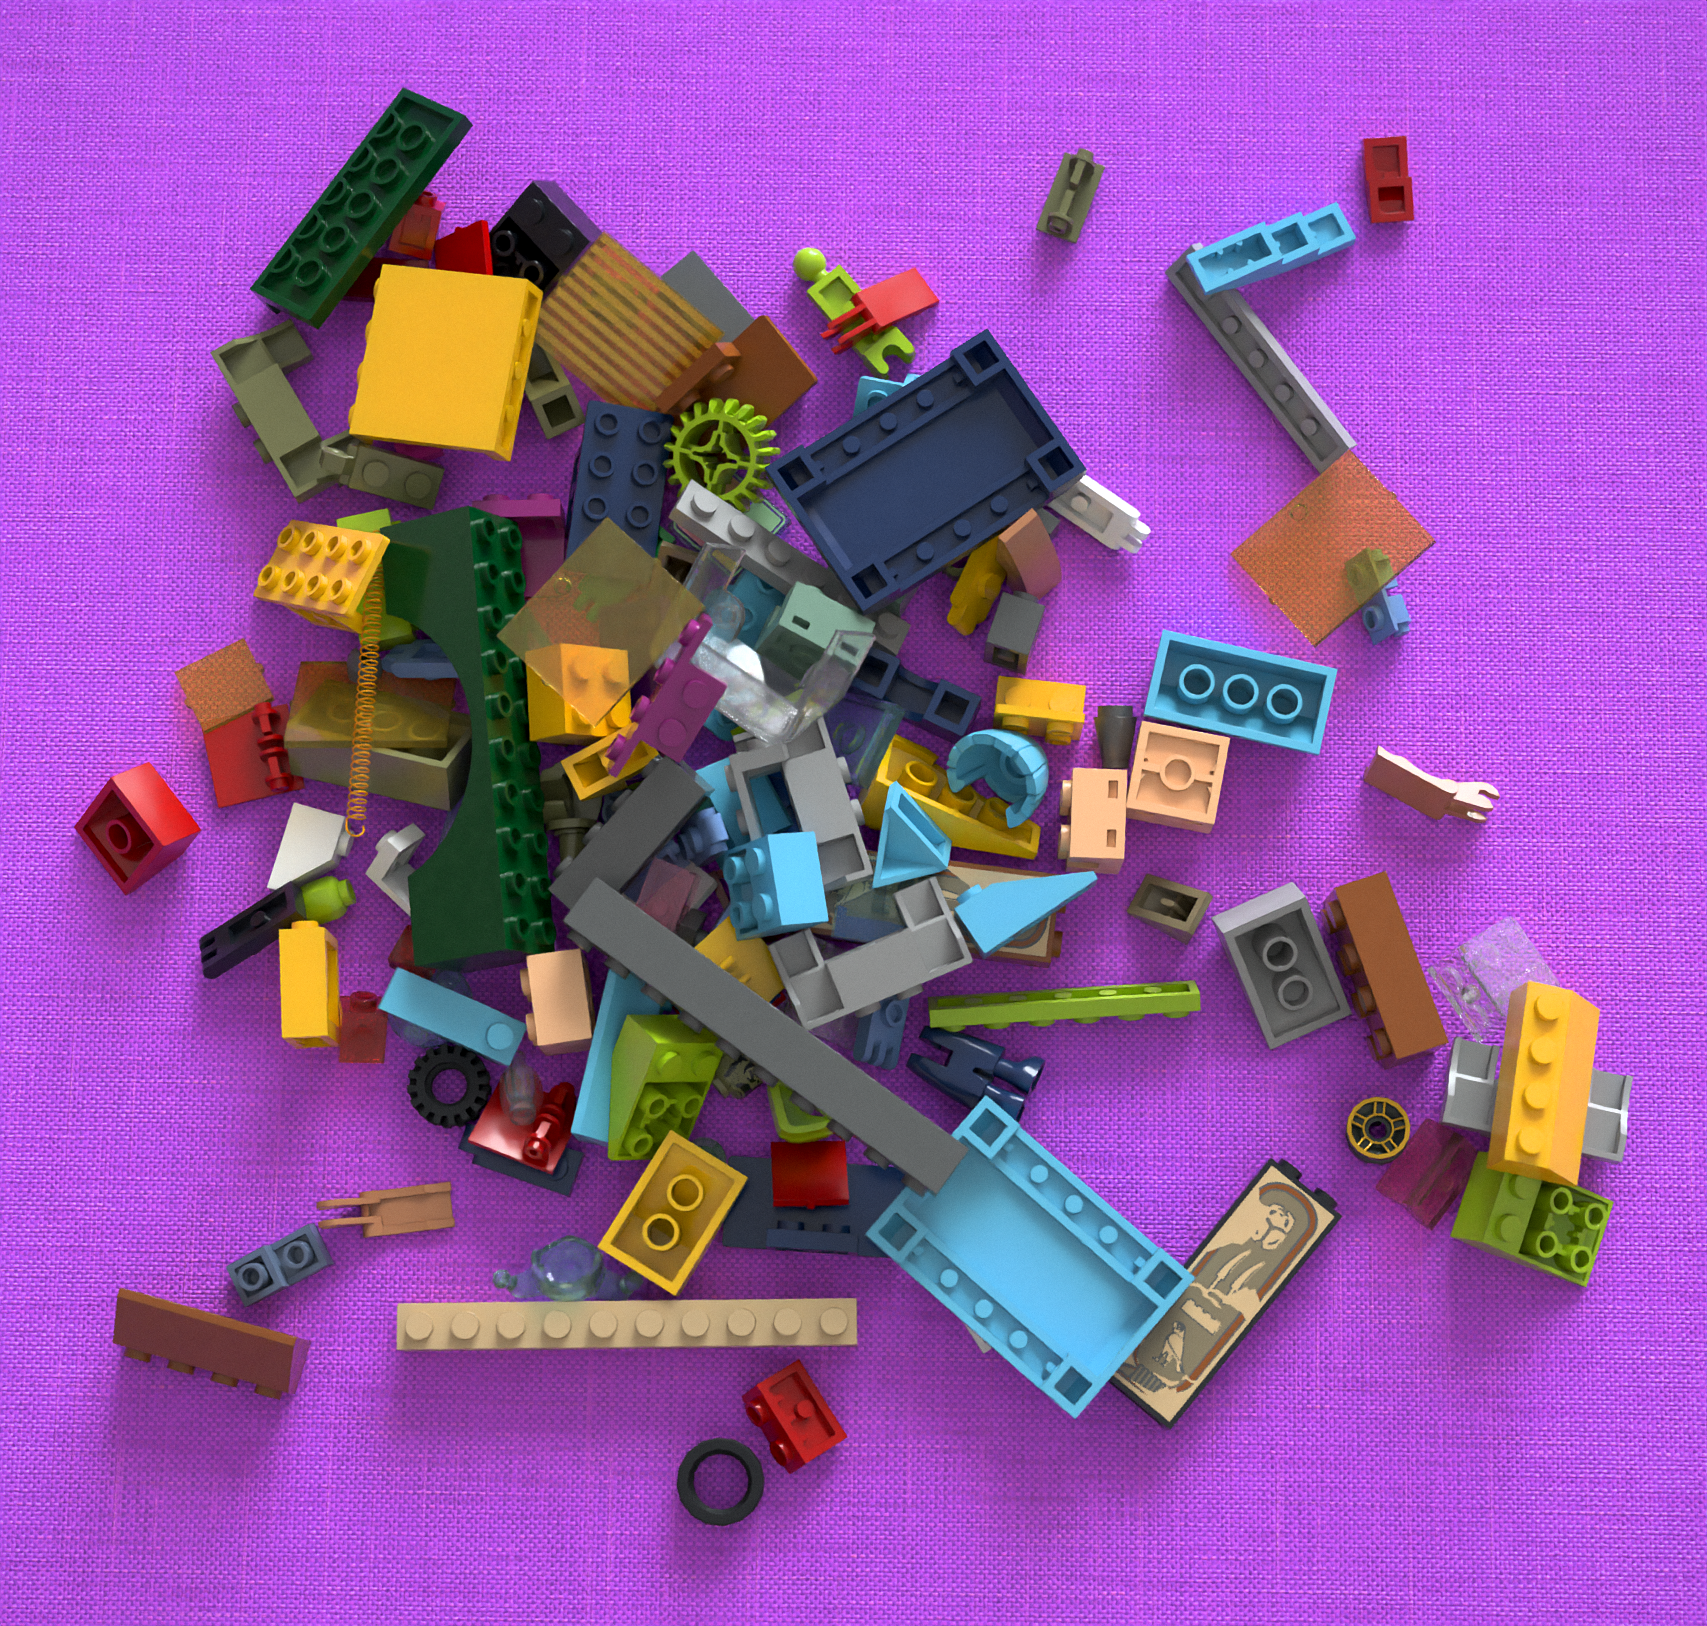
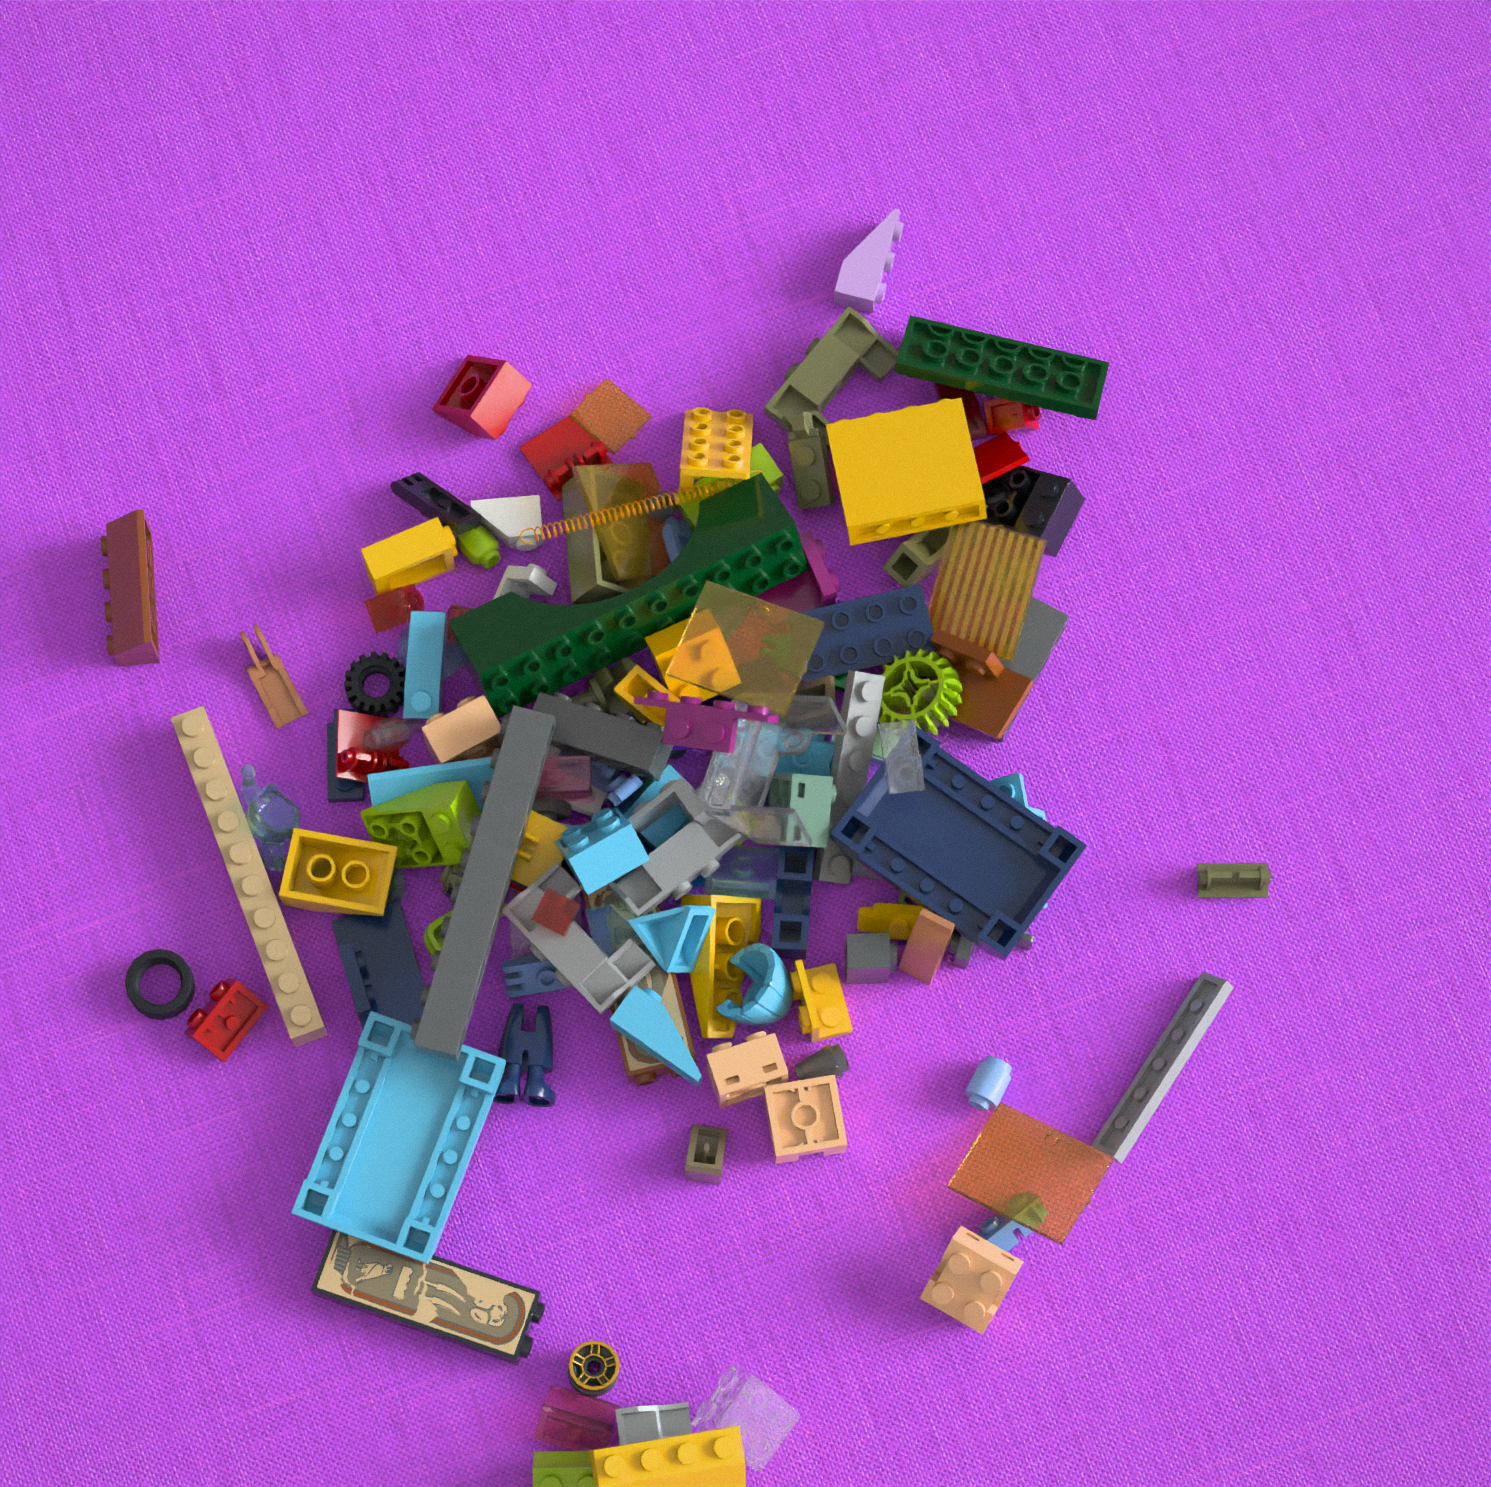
camera: 65 degrees right, 5 degrees down
(172, 325) = (863, 269): none -> lavender slope
(279, 1265) = (204, 618): sand blue slope -> none
(802, 494) = (901, 757): none -> clear slope
(809, 1174) = (403, 961): red piece -> none
(832, 298) = (1073, 751): lime plate -> none
(835, 966) = (556, 912): none -> clear red tile
(882, 307) = (1084, 771): arm -> none
(1081, 1004) = (606, 1111): lime plate -> none
(1102, 515) = (991, 990): white hinge -> none
(1207, 556) = (988, 1083): none -> light blue brick
(1240, 692) = (886, 1142): medium azure slope -> none
(1270, 249) = (1249, 1043): medium azure slope -> none
(1282, 964) = (693, 1251): light grey slope -> none
(1383, 970) = (715, 1326): dark orange brick -> none
(1387, 179) = (1348, 1115): red slope -> none
(1427, 793) = (867, 1321): nougat arm -> none
(1434, 660) = (971, 1279): none -> light nougat piece

